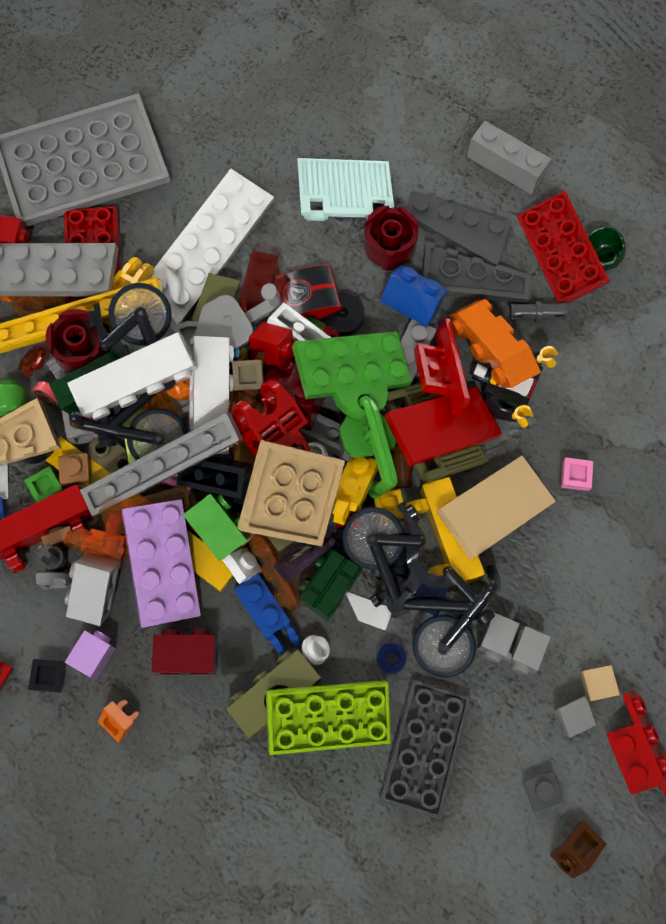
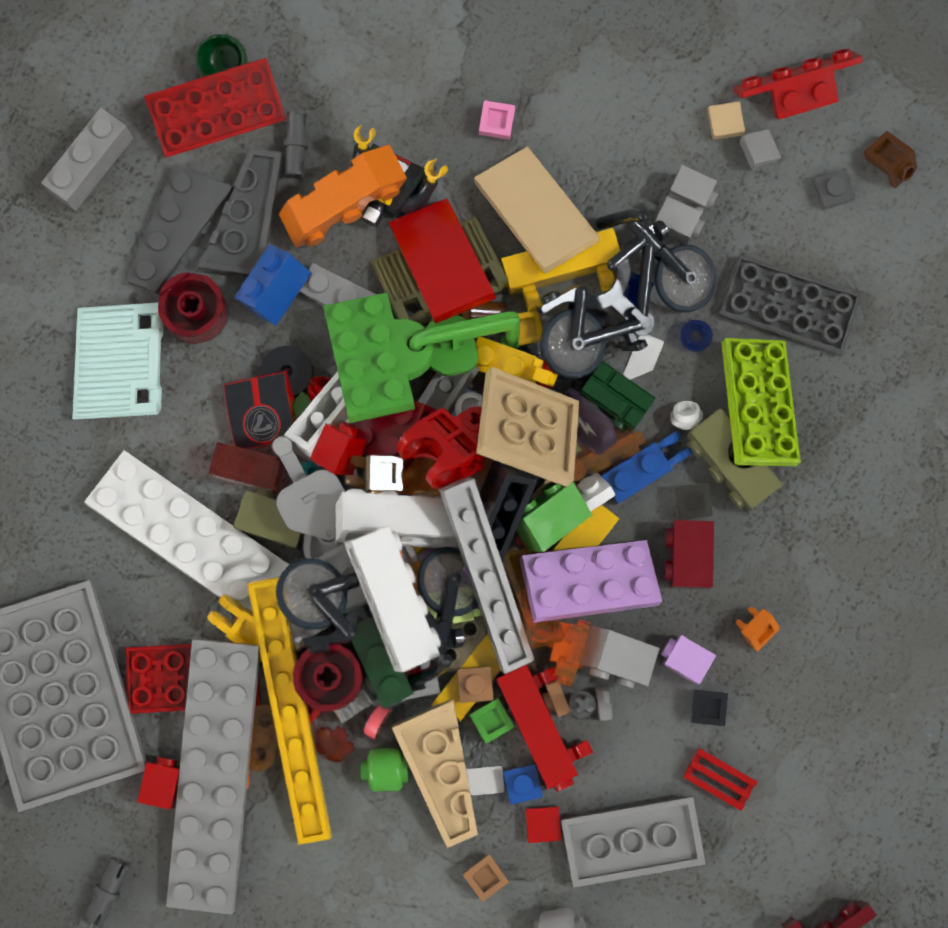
camera: 85 degrees left, 10 degrees up
(442, 370) = (370, 257): red bracket -> none

